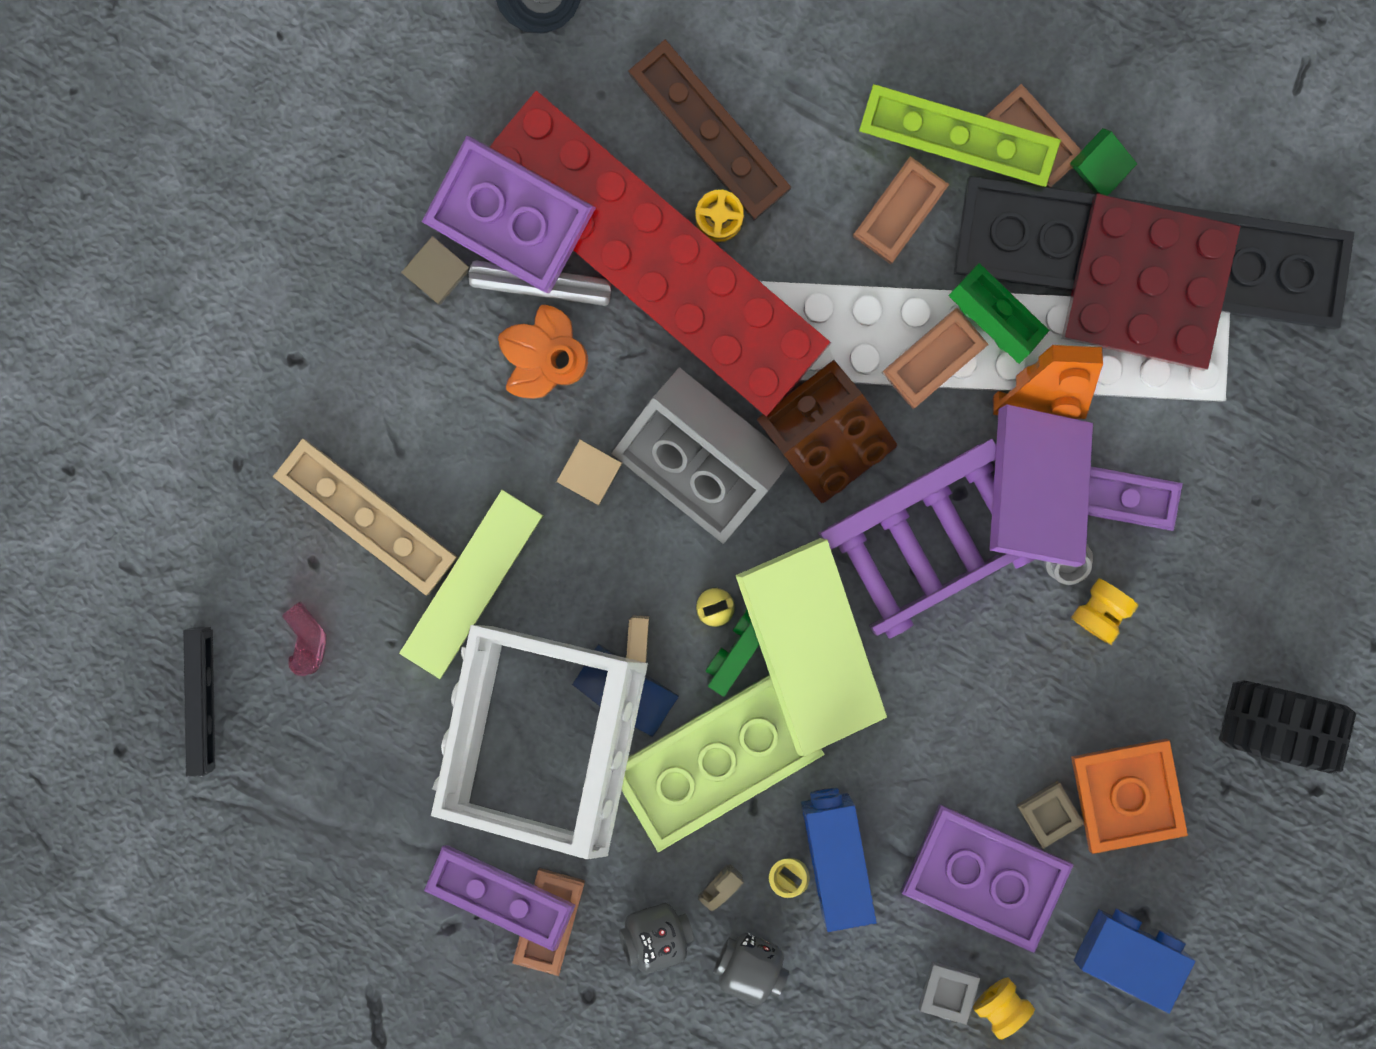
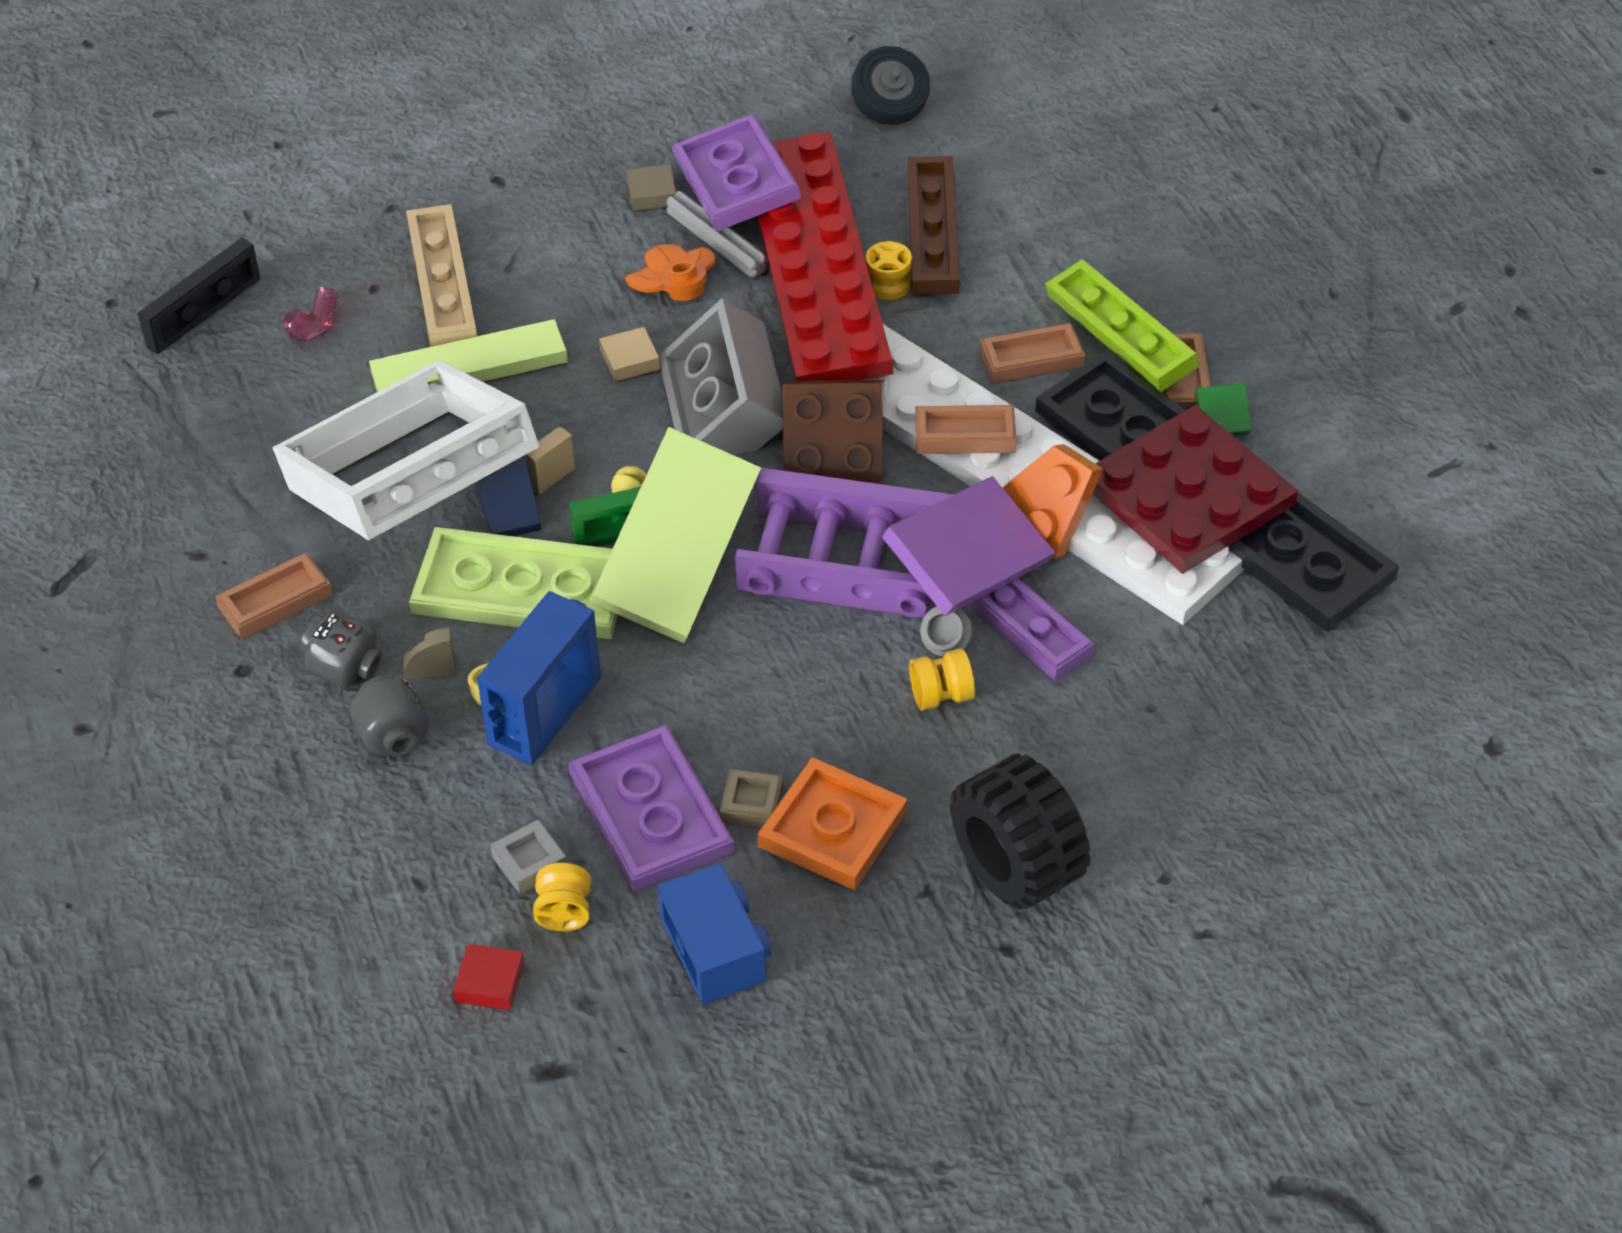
camera: 45 degrees right, 40 degrees down
(499, 897) = (258, 546): medium lavender tile -> none
(998, 313) = (1040, 415): green plate -> none

